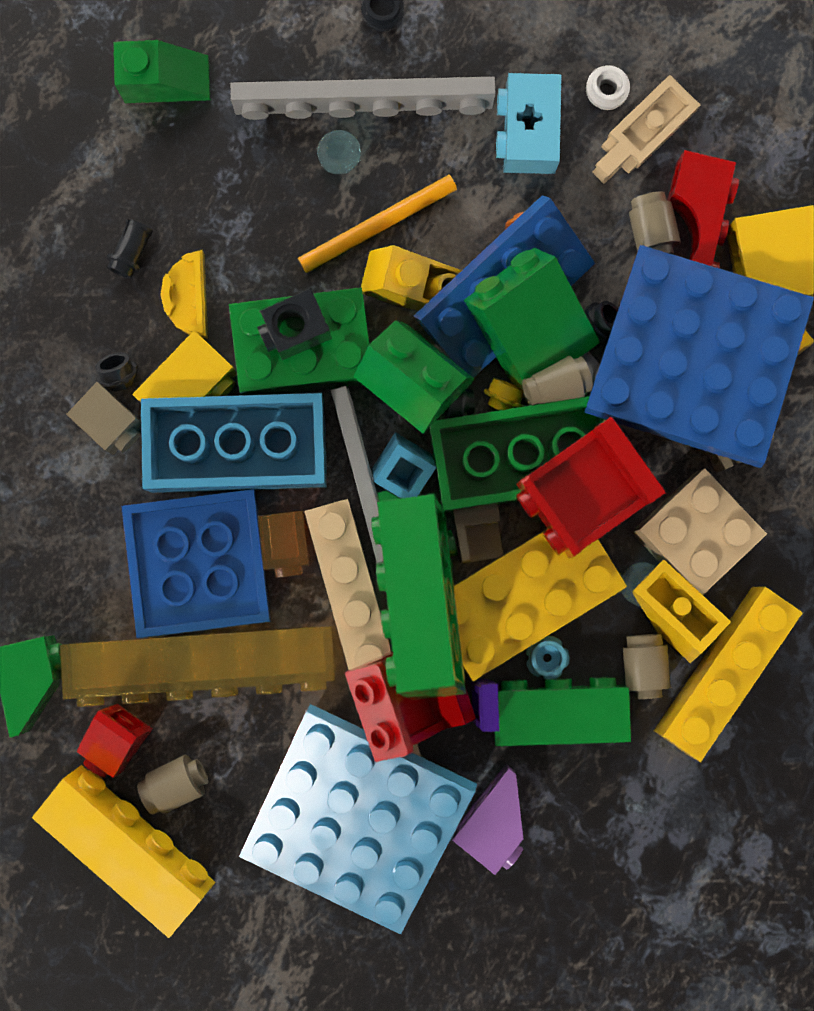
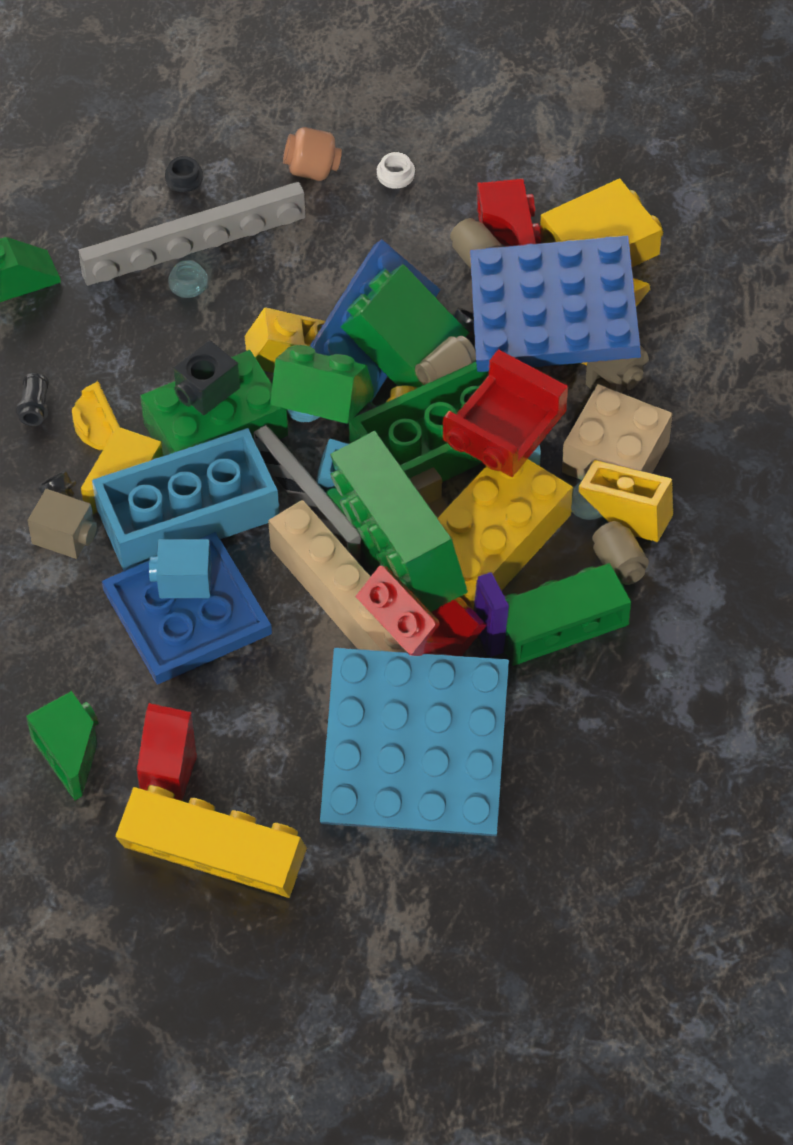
camera: 15 degrees left, 30 degrees down
(172, 785) = (235, 782): dark tan brick -> none
(198, 535) = (182, 568): none -> dark azure brick
(198, 663) = (222, 675): clear yellow brick -> none
(284, 543) = (260, 562): clear orange brick -> none
(377, 223) = (254, 308): light orange bar -> none
(493, 824) = (541, 716): medium lavender slope -> none
(526, 34) = (311, 154): none -> nougat head
(536, 99) = (342, 211): medium azure brick -> none
(553, 668) = (527, 571): medium azure plate -> none
(646, 129) = (439, 188): tan hinge -> none
(727, 672) = (691, 535): yellow brick -> none

